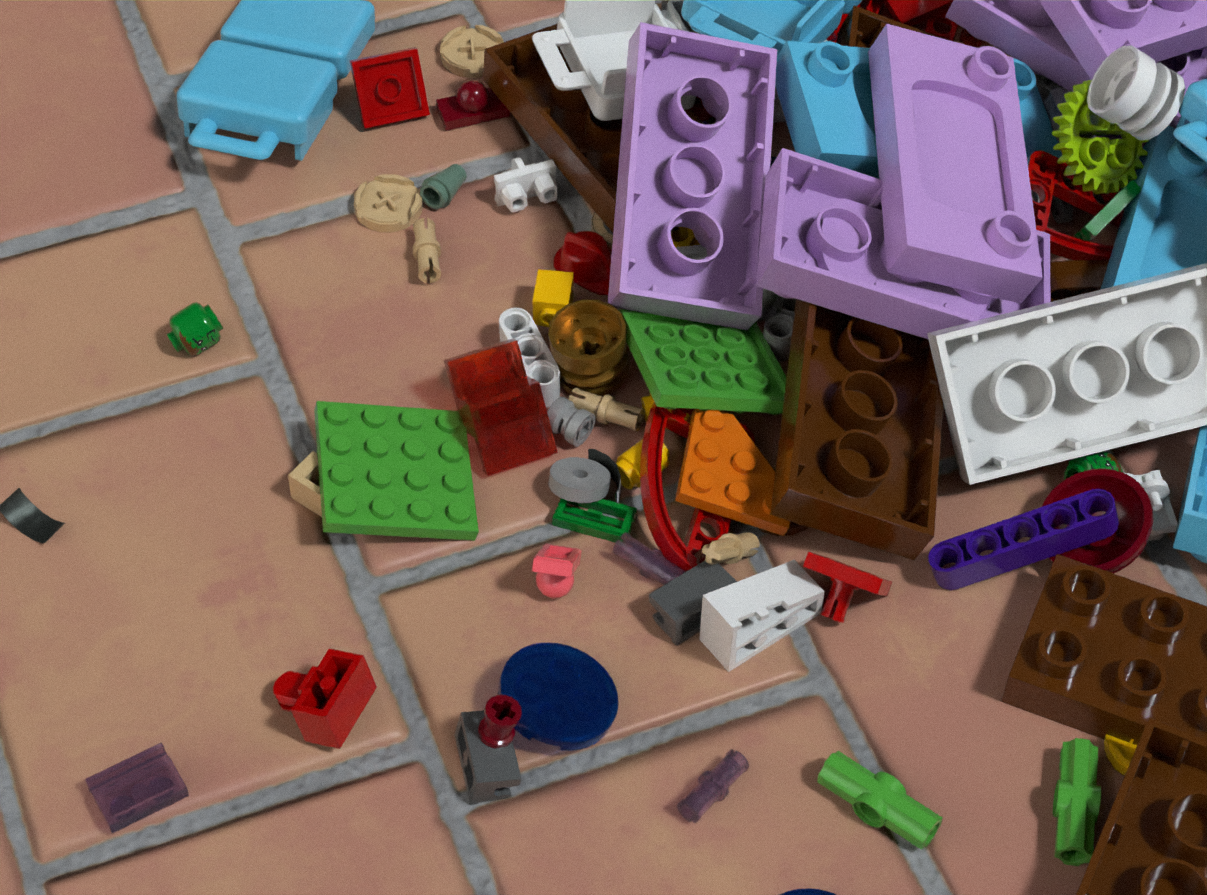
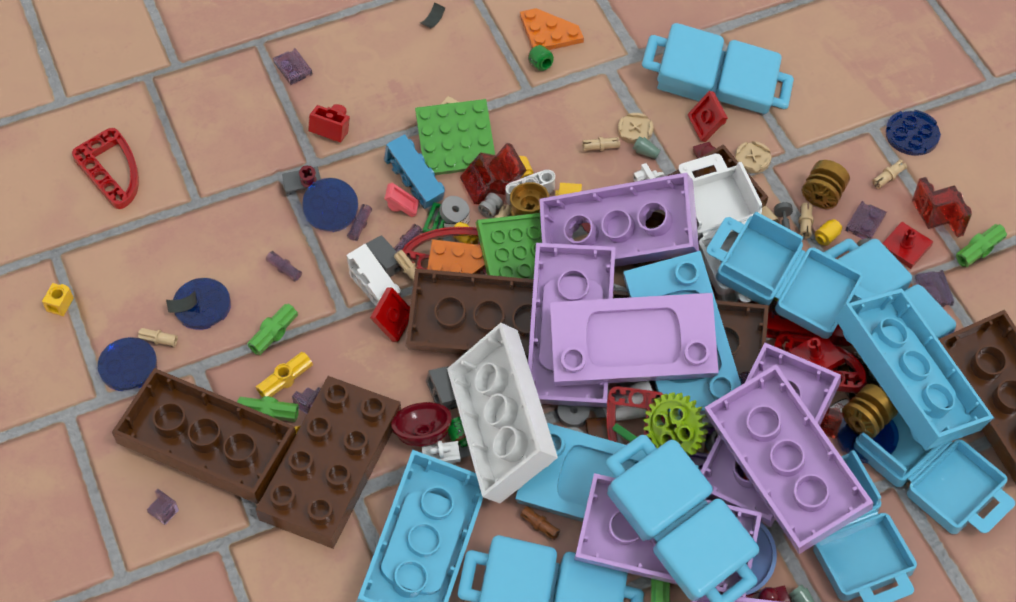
camera: 90 degrees right, 5 degrees up
(112, 323) = (549, 30): none -> orange plate
(479, 543) = (414, 171): none -> dark azure wedge
(601, 646) = (359, 222): none -> clear purple pin
(1000, 499) = (441, 388): none -> dark grey hinge
(1011, 788) = (292, 369): none -> yellow piece
(1036, 525) = (409, 388): dark purple beam -> none
(1043, 728) = (305, 399): none -> clear purple panel
(1135, 93) = (681, 422): white wheel -> none

